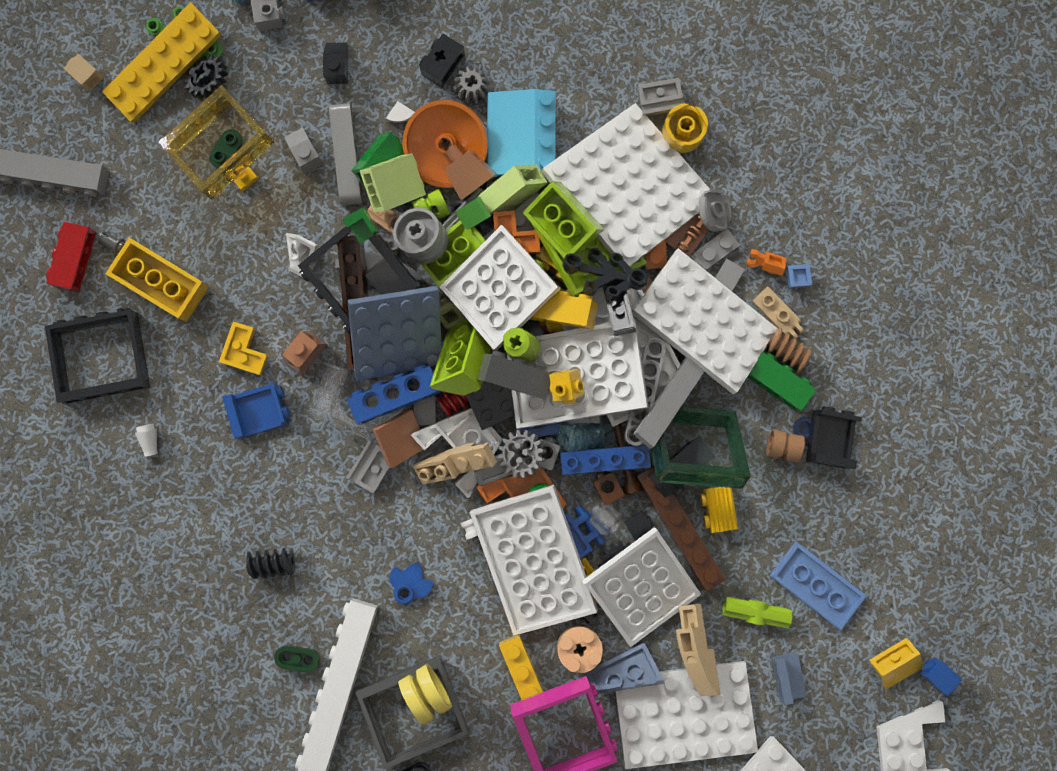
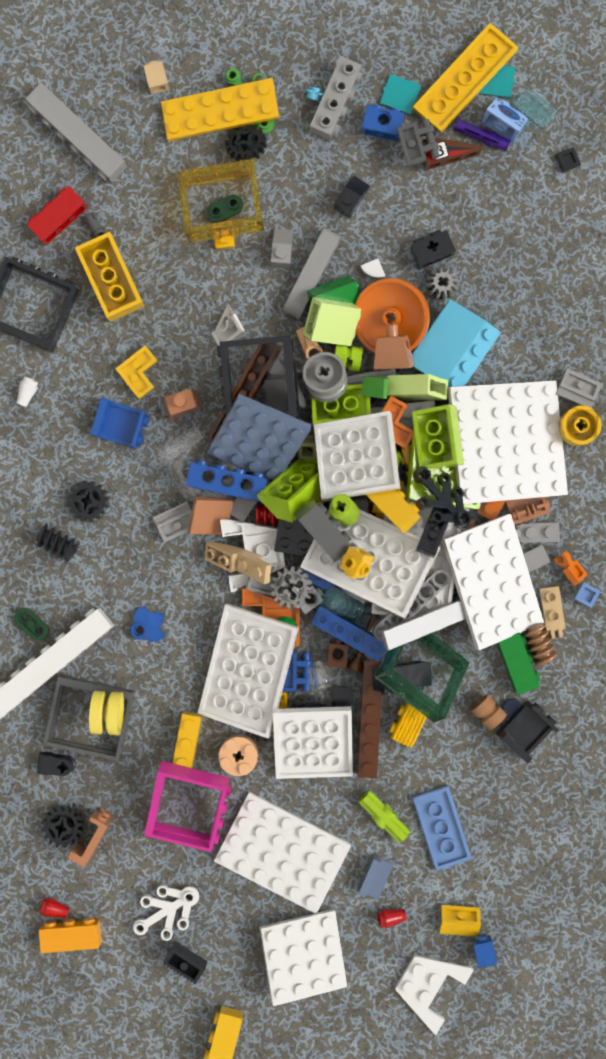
camera: 40 degrees right, 5 degrees up
(278, 511) = (86, 510): none -> black gear
(361, 224) = (286, 345): green panel -> none
(469, 528) = (216, 619): white wheel -> none
(626, 671) = (261, 794): sand blue wing -> none
(693, 648) = (318, 816): tan slope -> none
(714, 210) = (558, 503): light grey tile -> none
(830, 706) = (391, 917): none -> red cone

